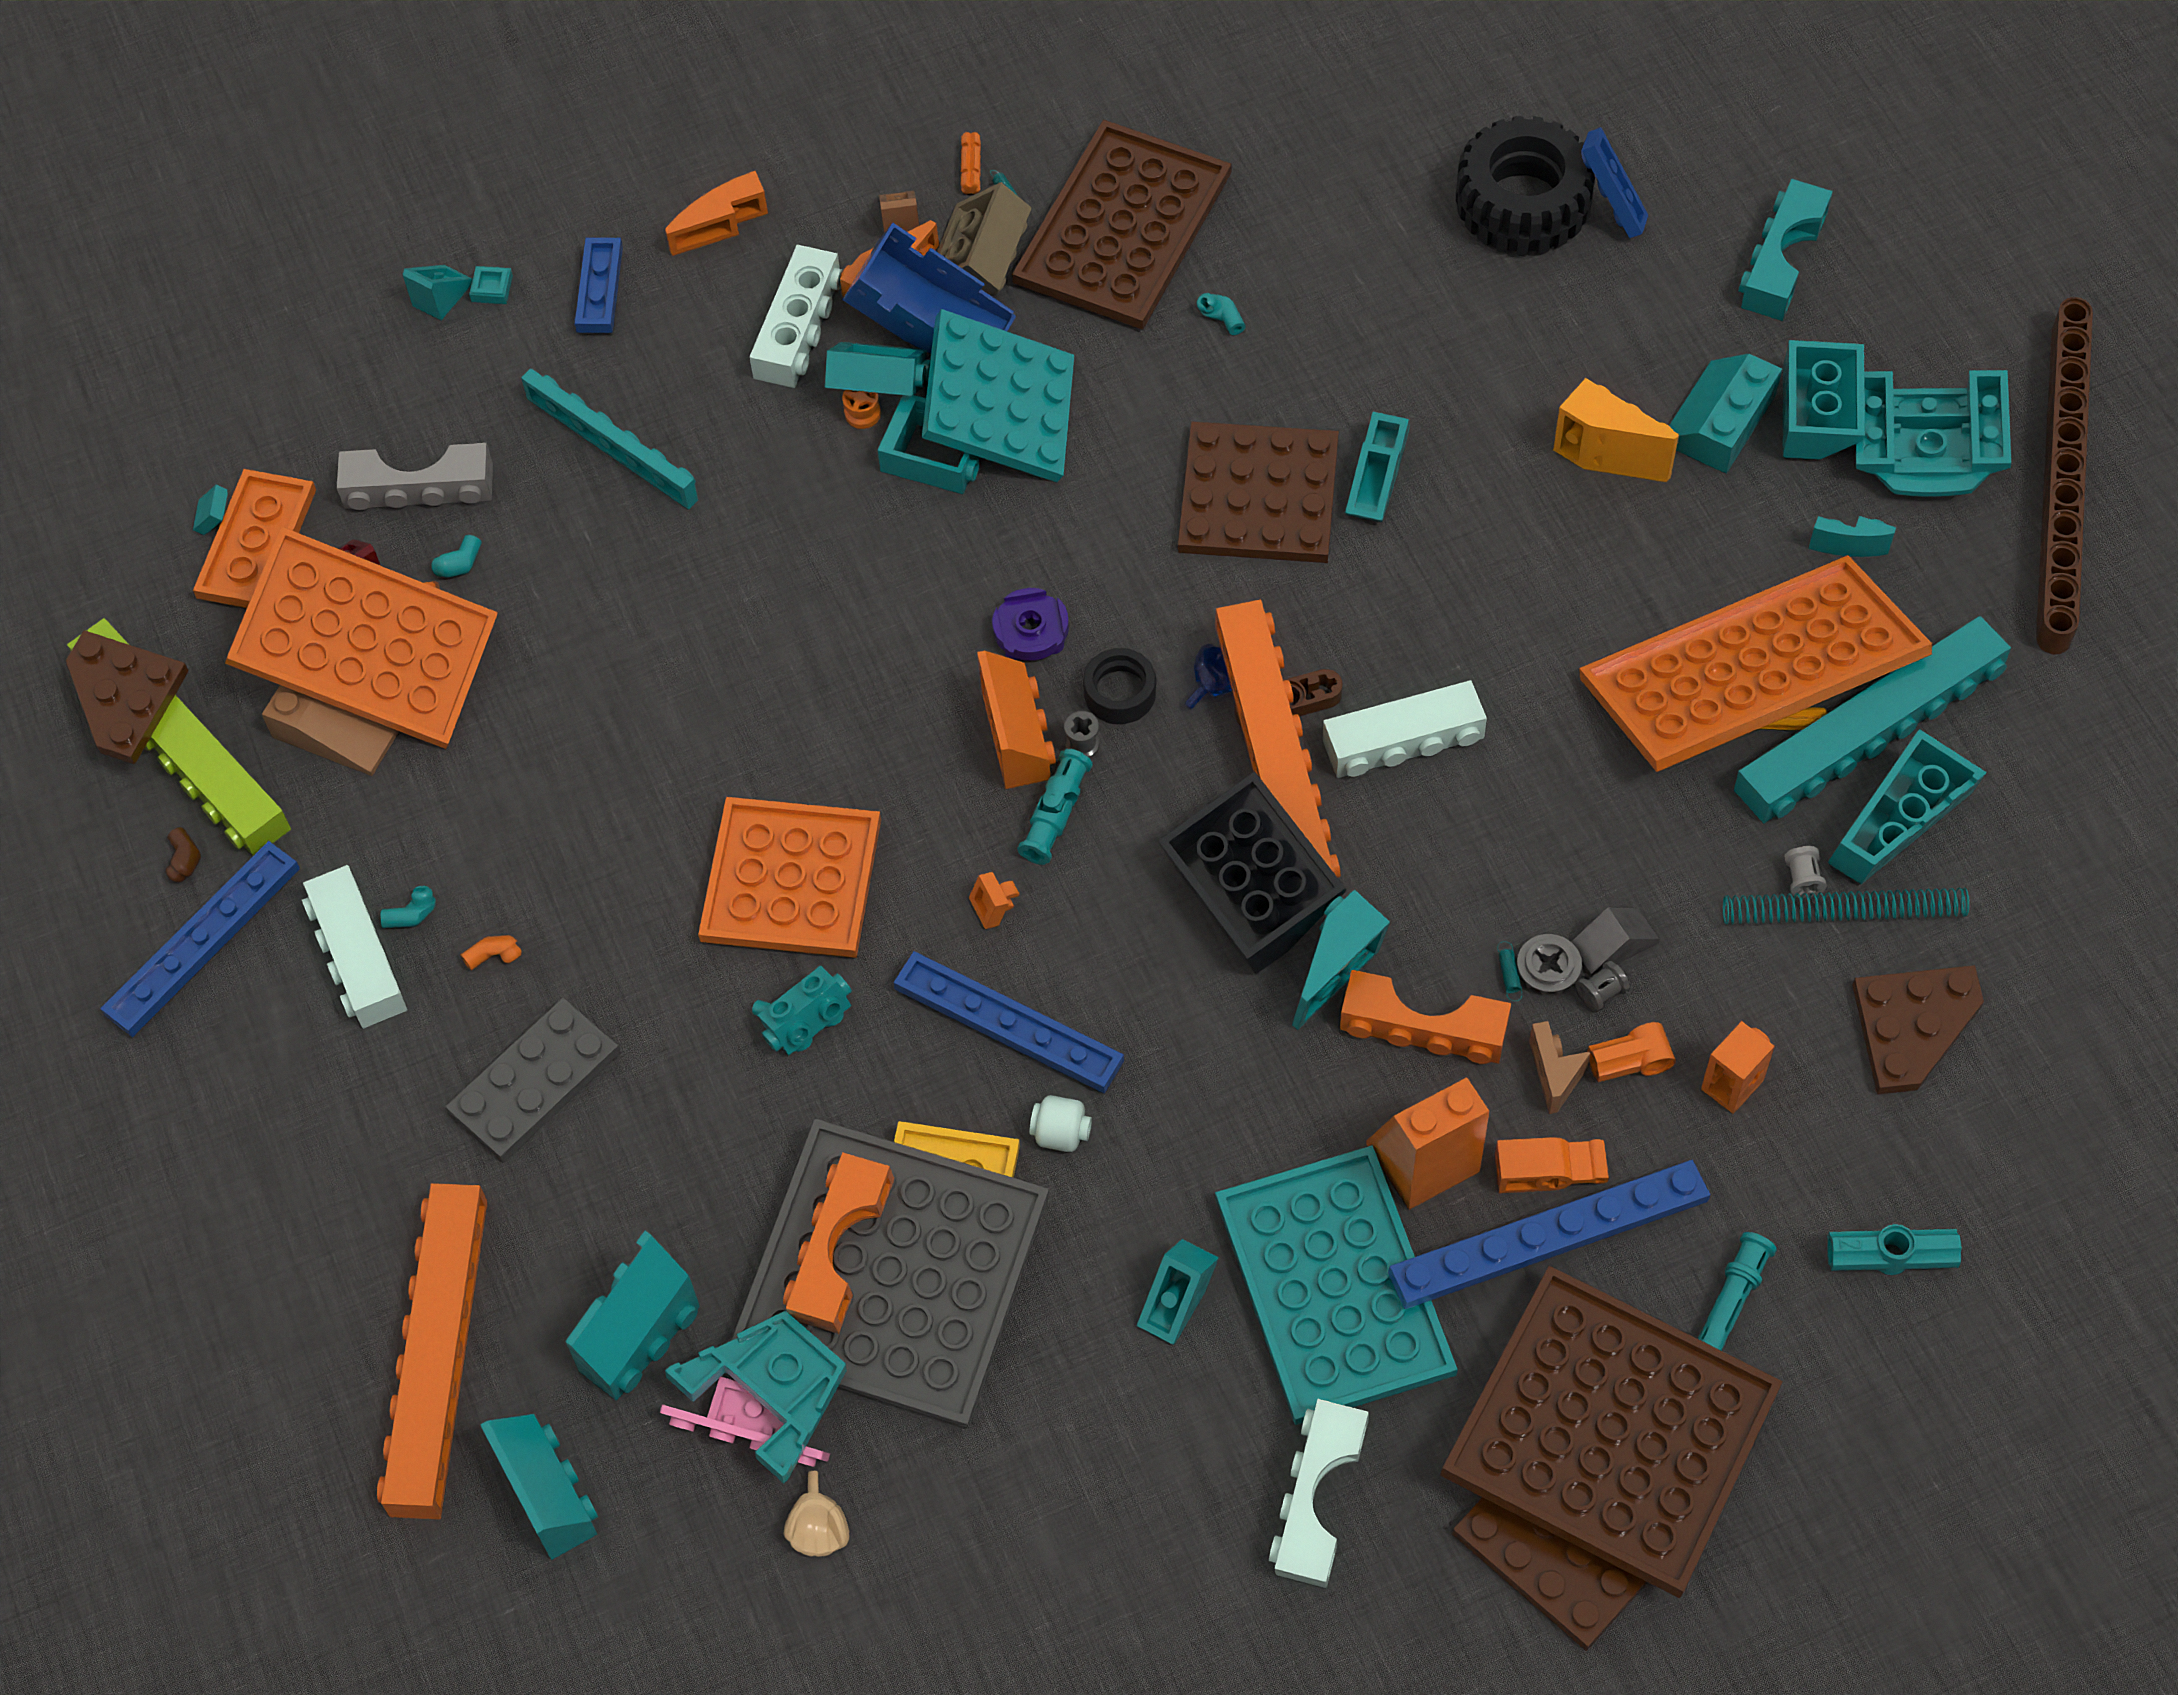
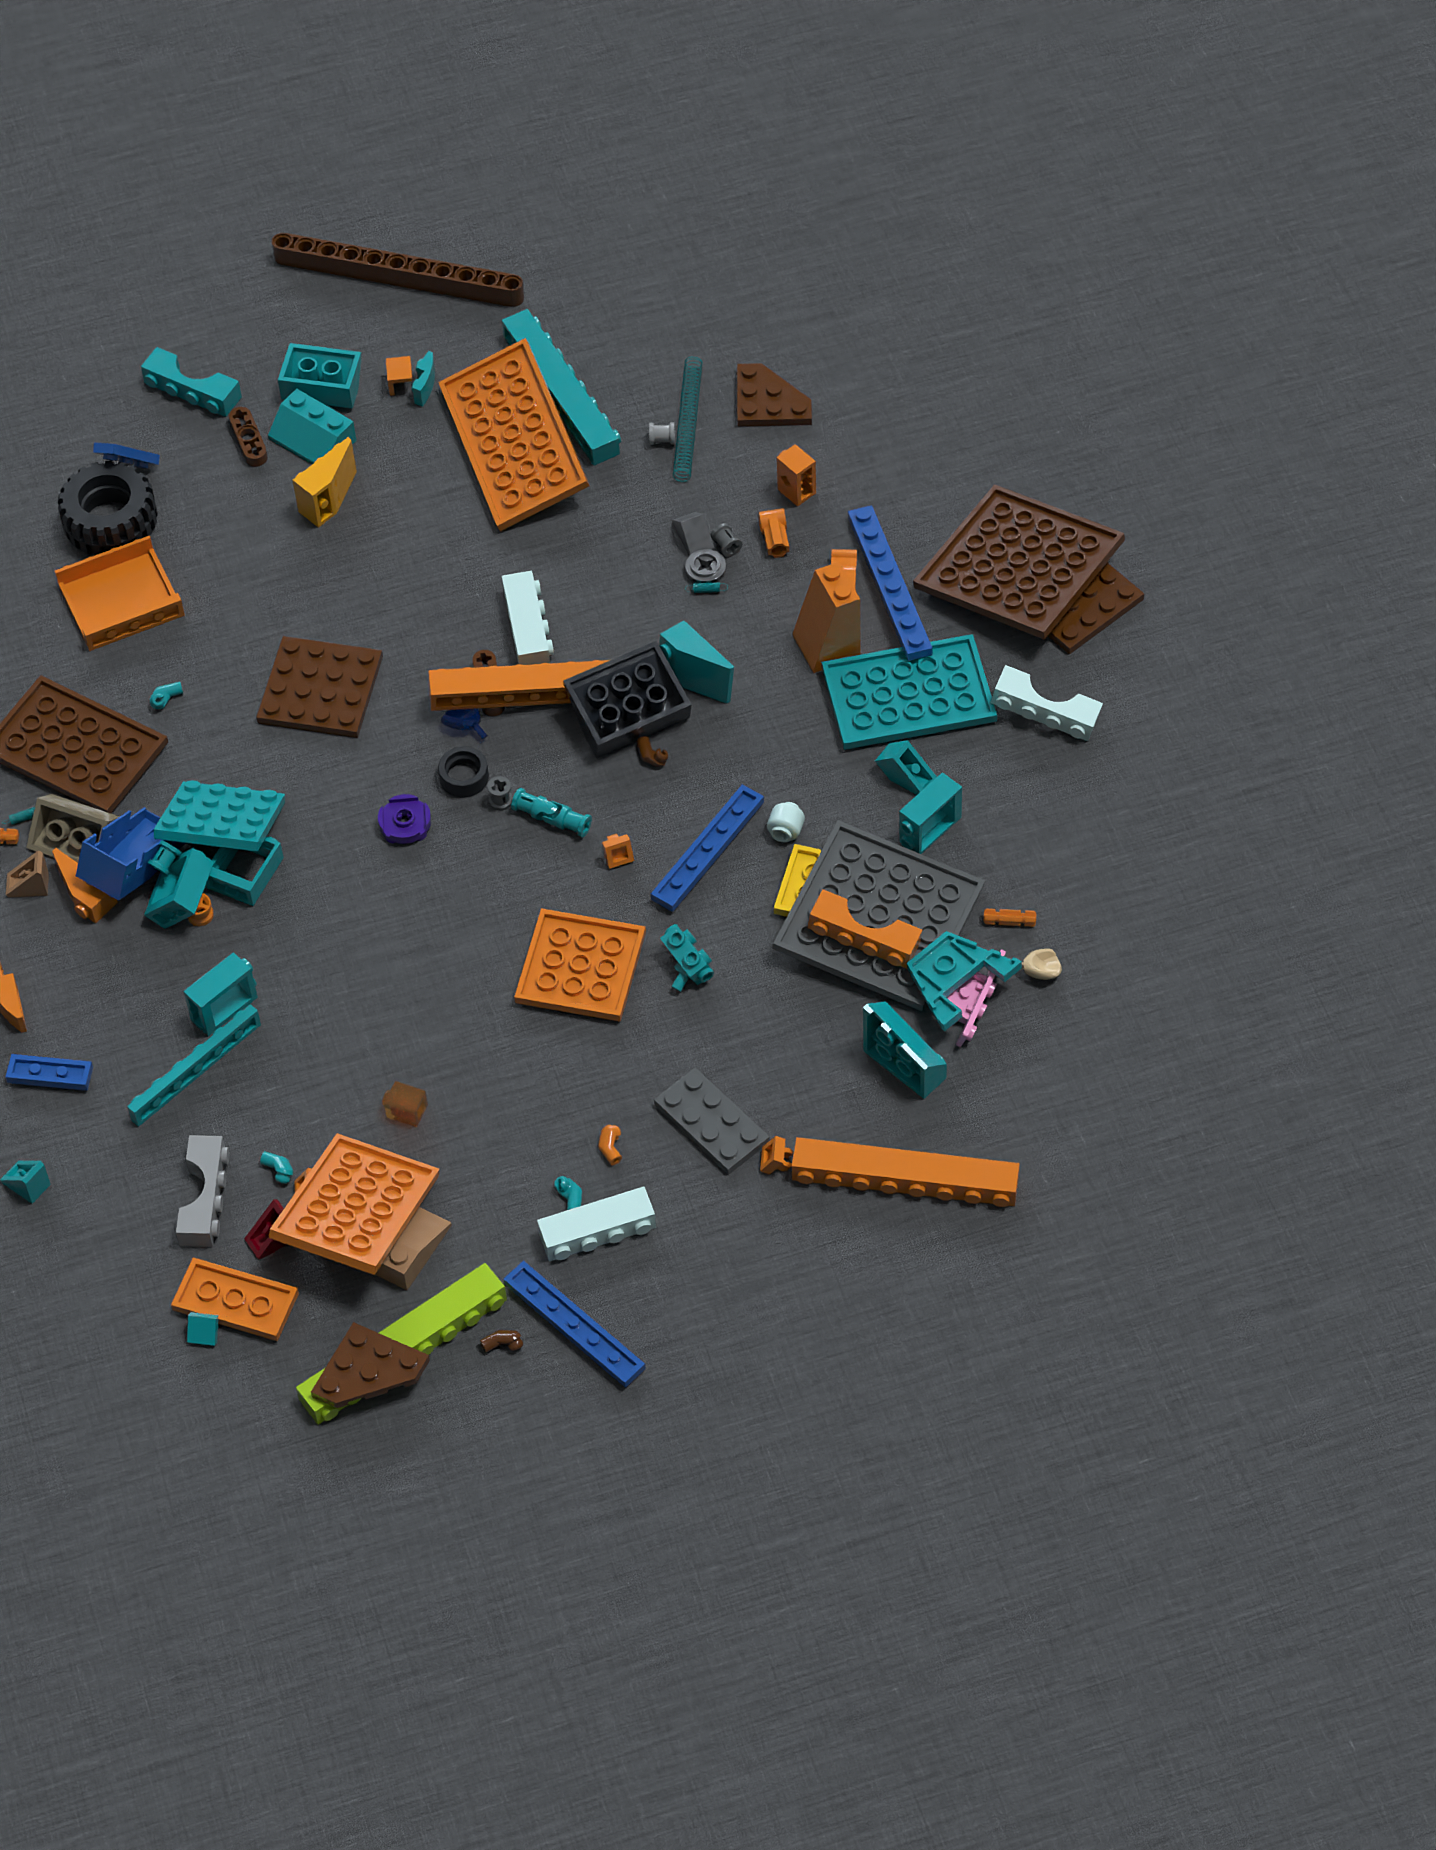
camera: 85 degrees left, 5 degrees down
(465, 1164) = (774, 1154): none -> orange tile
(491, 285) = (27, 1147): teal tile -> none
(542, 1482) = (1007, 1109): teal slope -> none
(550, 688) = (405, 1103): none -> clear orange brick
(708, 443) = (221, 993): none -> teal window
(796, 316) = (120, 955): light aqua brick -> none
(908, 335) = (164, 857): none -> teal bush
(908, 1470) = (1009, 917): none -> orange axle
(1014, 720) = (485, 830): orange slope -> none
(1075, 1325) = (930, 814): none -> teal window
(1176, 926) = (651, 756): none -> reddish brown arm
(1378, 466) = (317, 616): teal slope -> none
(1390, 232) = (119, 593): none -> orange panel
(1470, 1031) = (747, 606): orange arch -> none
(1556, 1072) = (783, 570): medium nougat slope -> none
(1694, 349) = (247, 445): none -> reddish brown beam
(1742, 1277) = (926, 497): teal pin -> none
(1852, 497) = (398, 370): none -> orange panel
(1910, 800) = (627, 378): teal wedge -> none
(1920, 1249) = (917, 424): teal piece -> none
(1935, 436) = (360, 318): teal slope -> none

